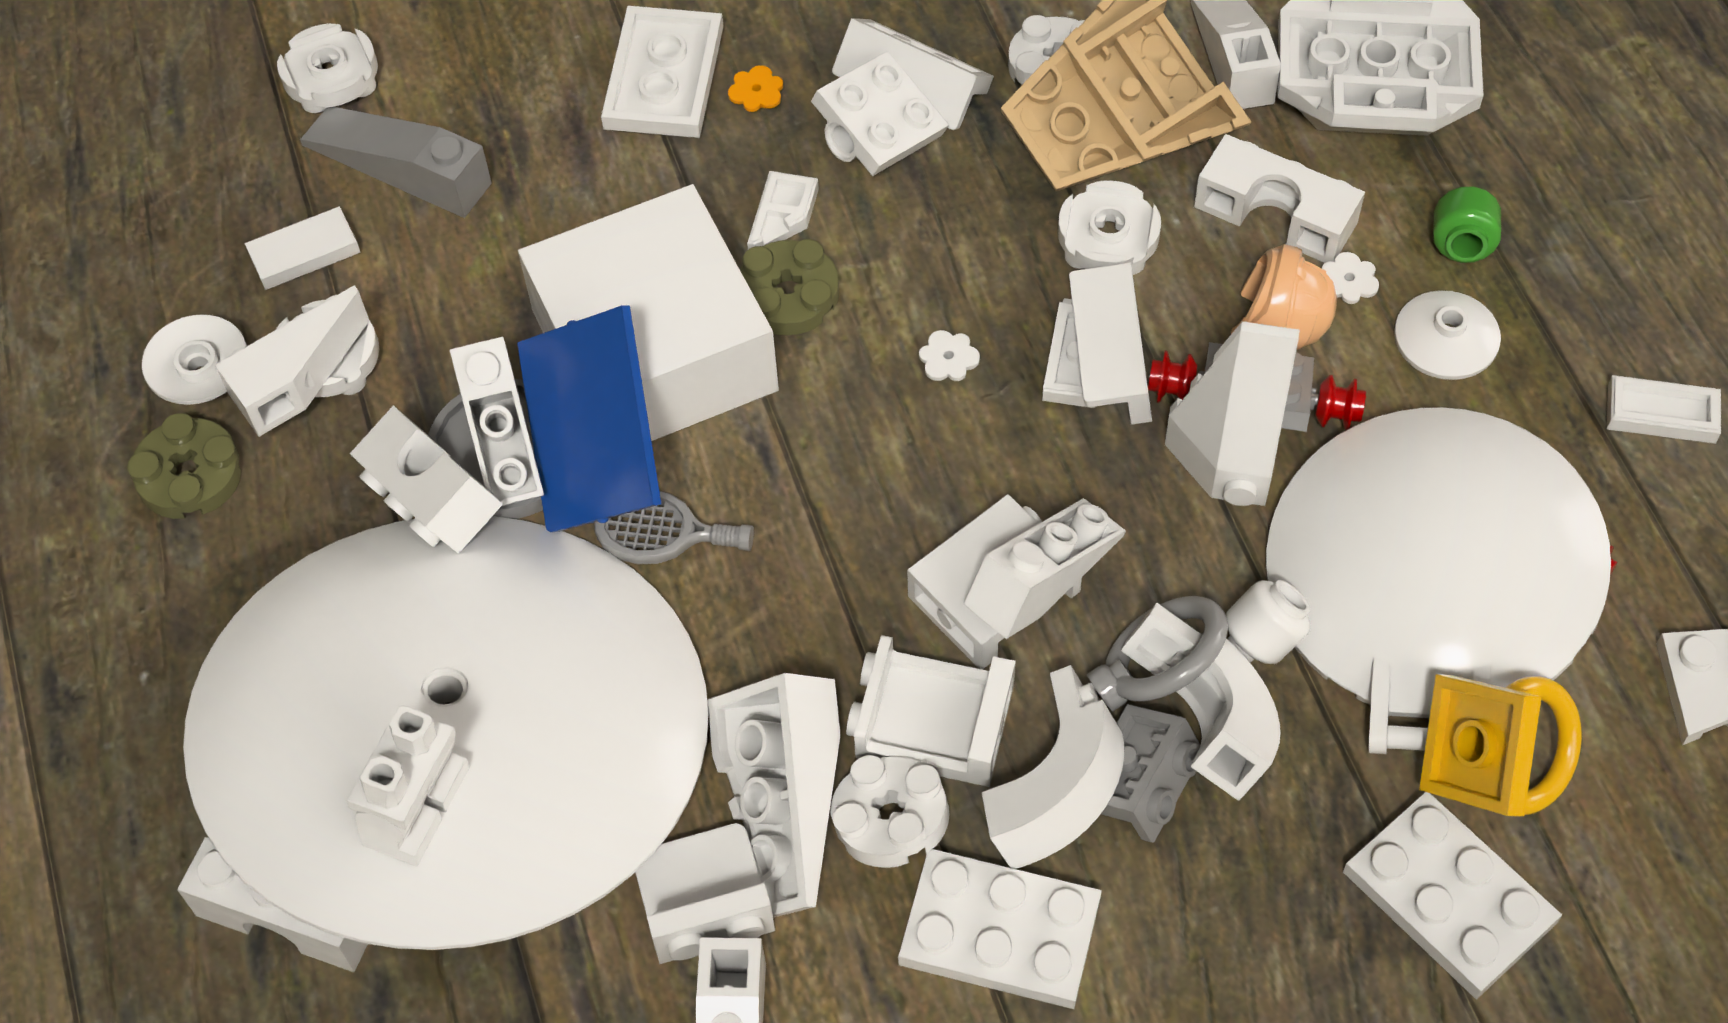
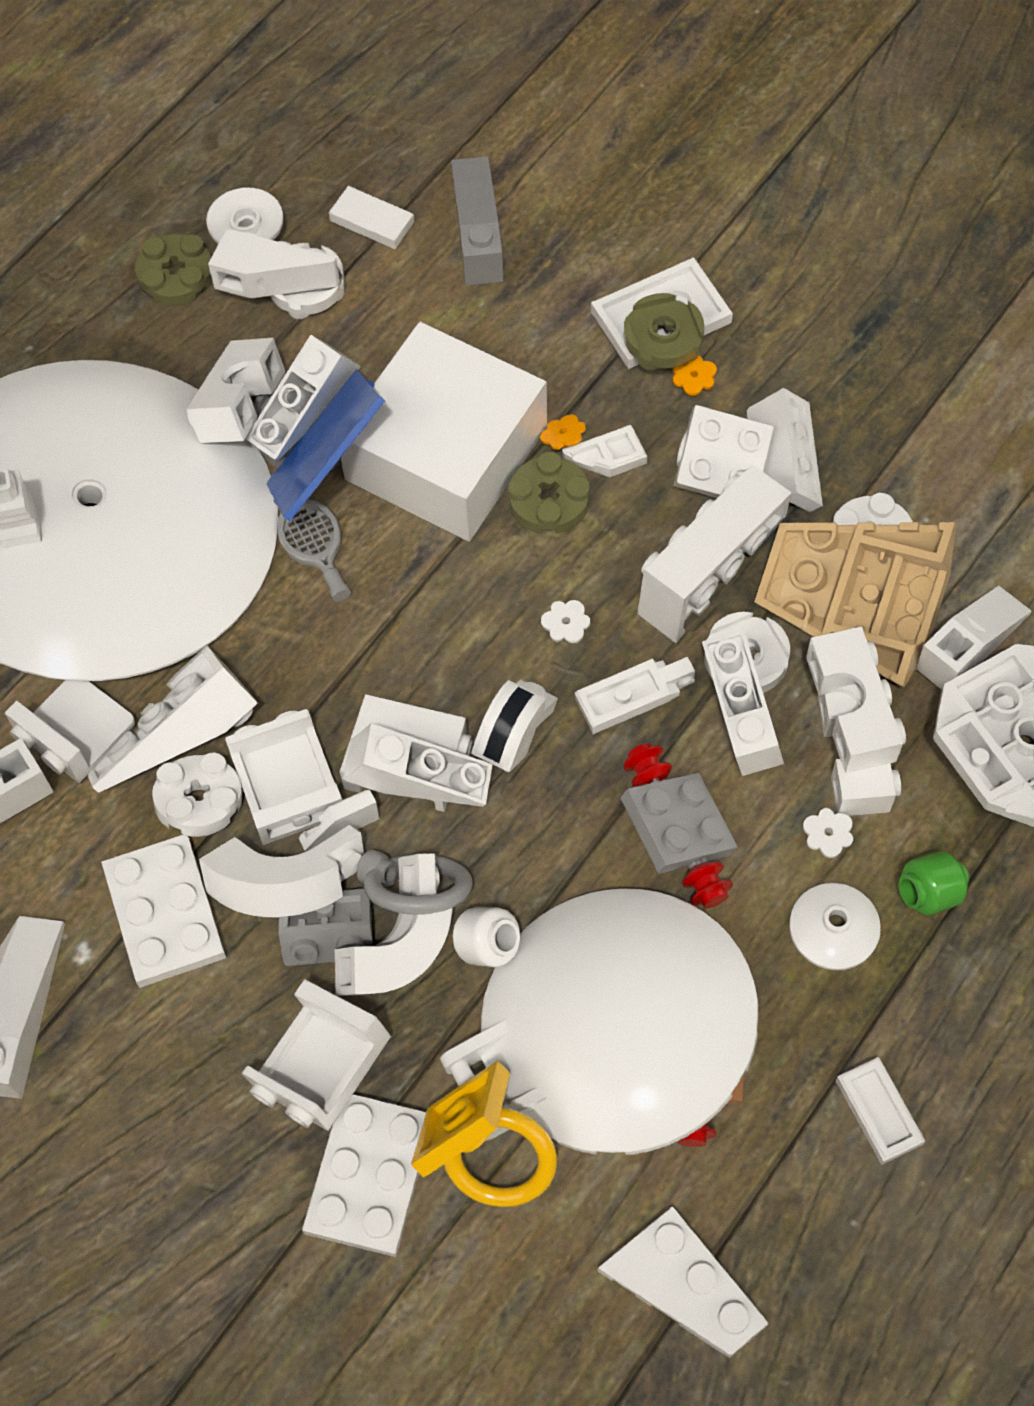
camera: 55 degrees right, 5 degrees up
(321, 88) = (513, 151): white plate -> none
(705, 94) = (658, 350): none -> olive plate
(734, 226) = (563, 433): none -> light orange plant
(988, 181) = (710, 550): none -> white wedge
(1026, 689) = (354, 811): none -> white tile
(1041, 460) = (512, 723): none -> white brick
(1110, 339) = (647, 709): white panel -> none
(1173, 255) = (742, 703): none -> white slope
(1217, 137) = (848, 665): none -> white arch
(1235, 413) = (616, 826): white wedge -> none
(1290, 294) = (760, 799): light nougat helmet -> none
(1296, 860) = (319, 1058): none -> white panel

